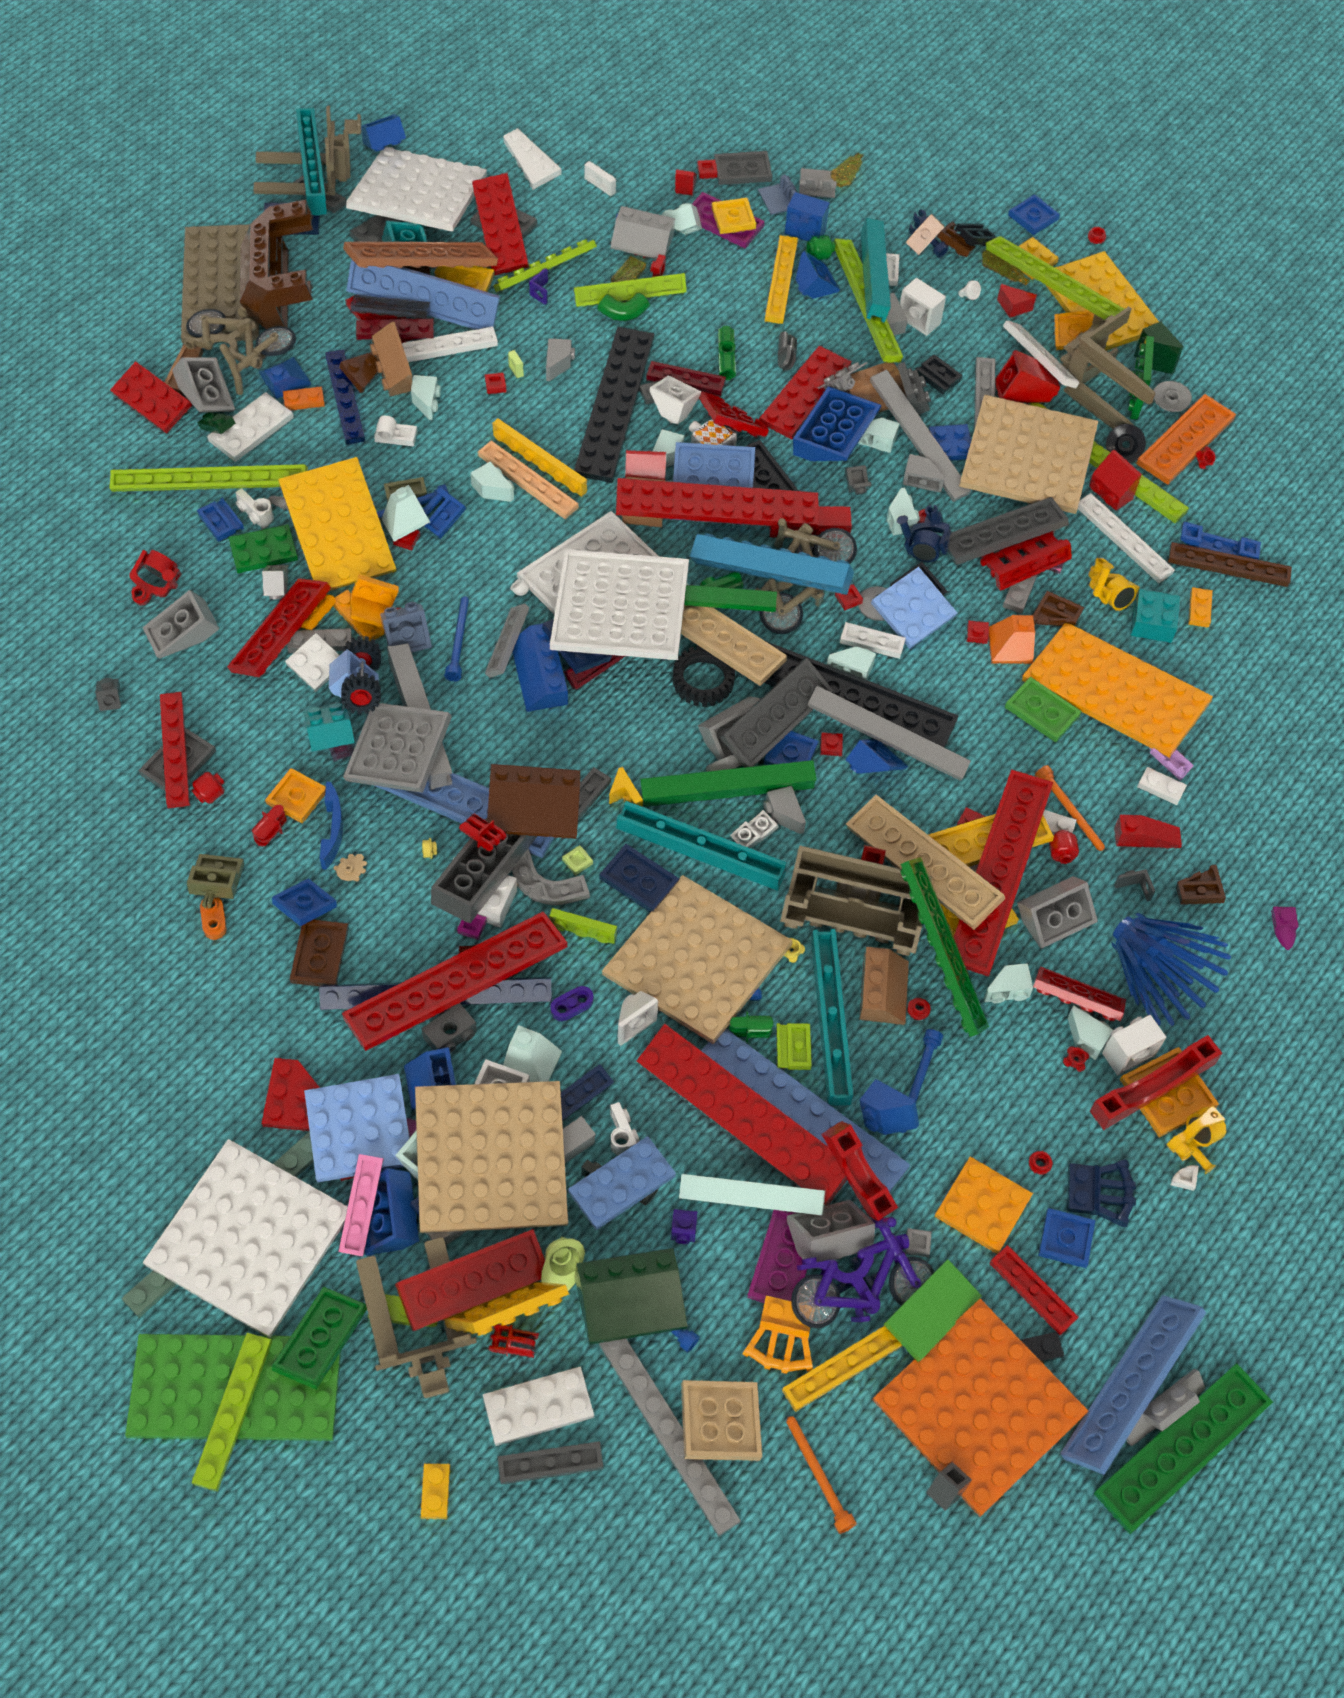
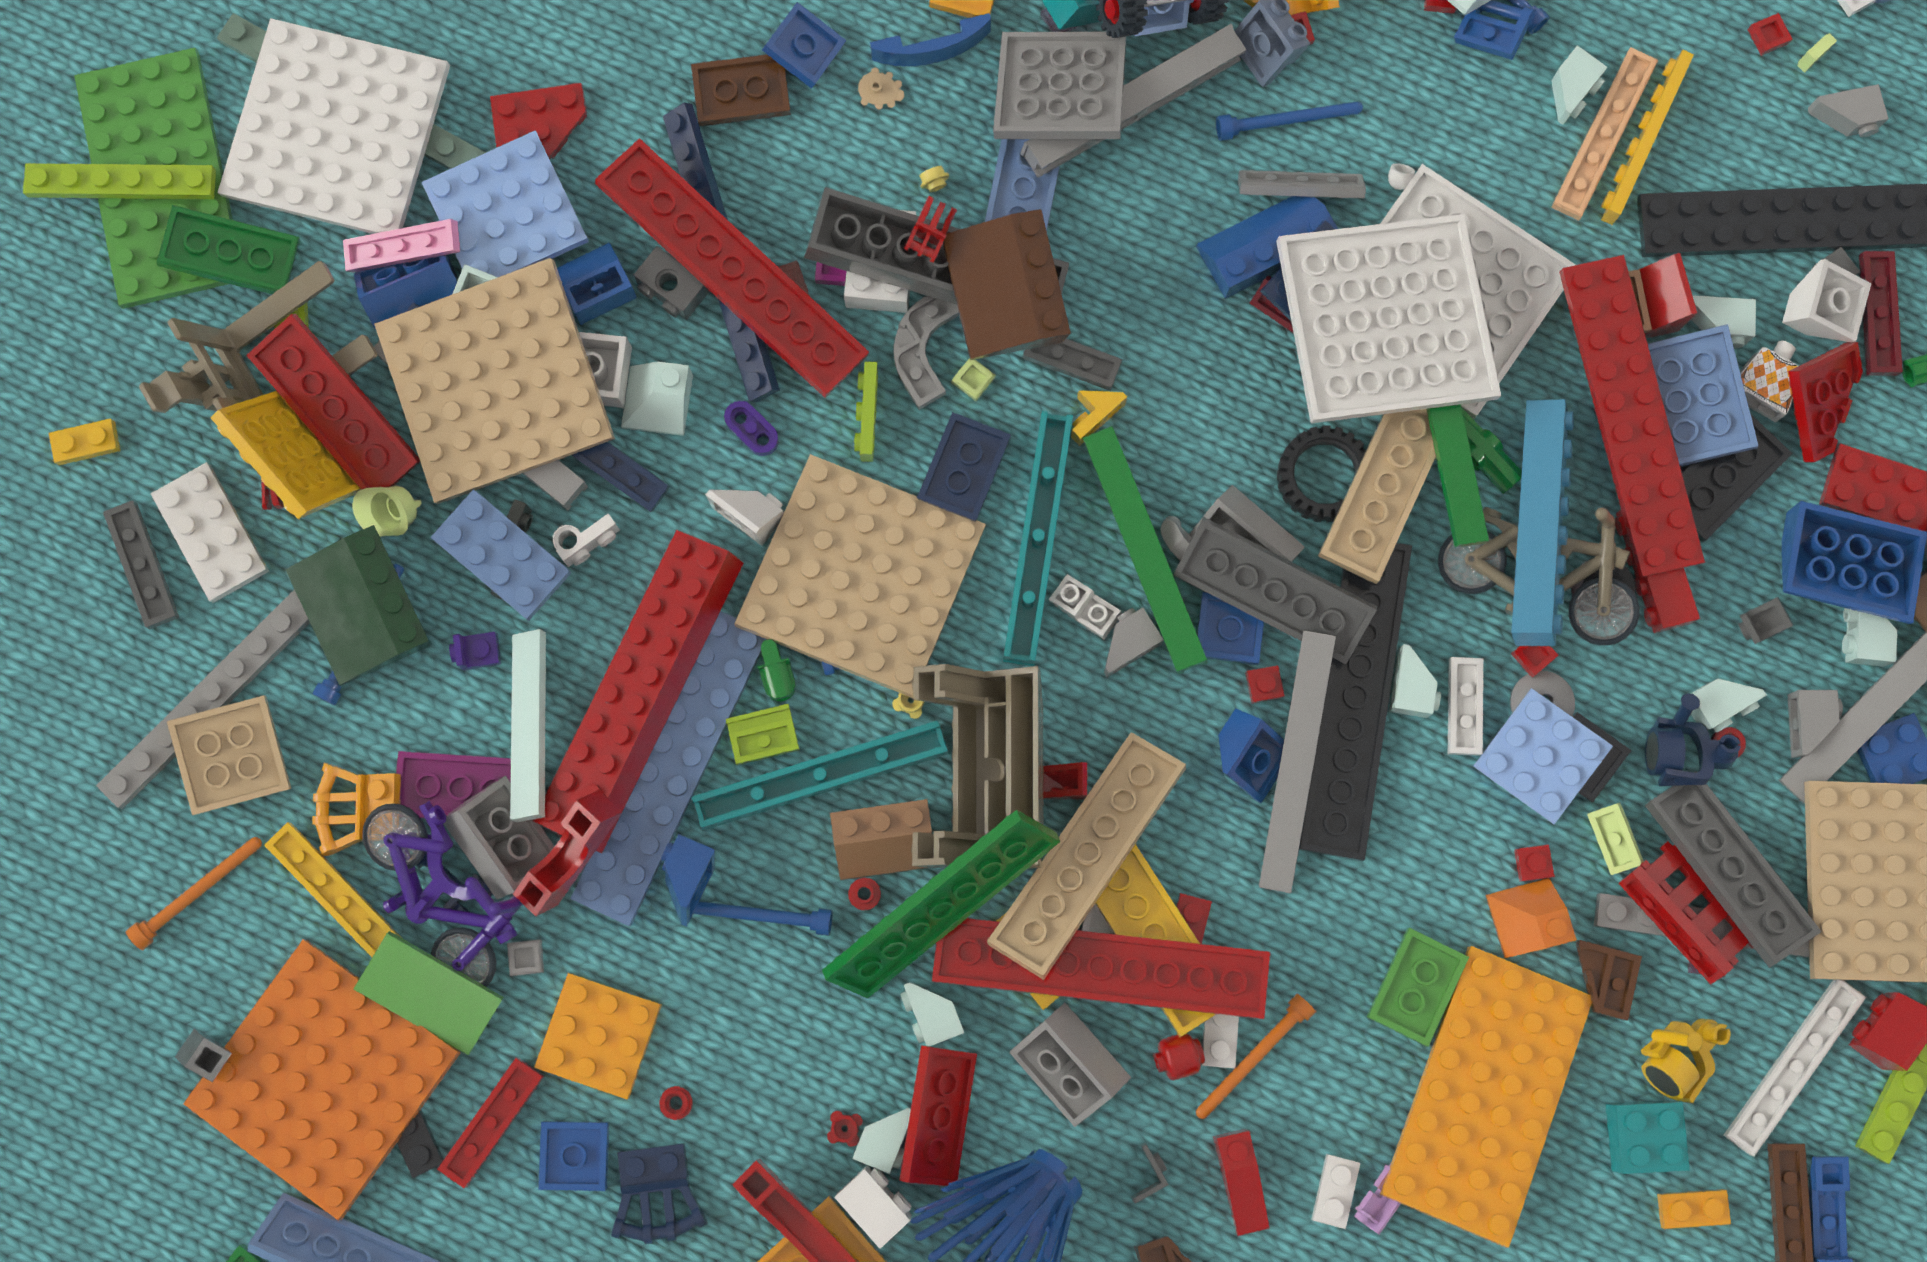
camera: 80 degrees right, 20 degrees up
(972, 585) = (1615, 838): none -> yellowish green plate

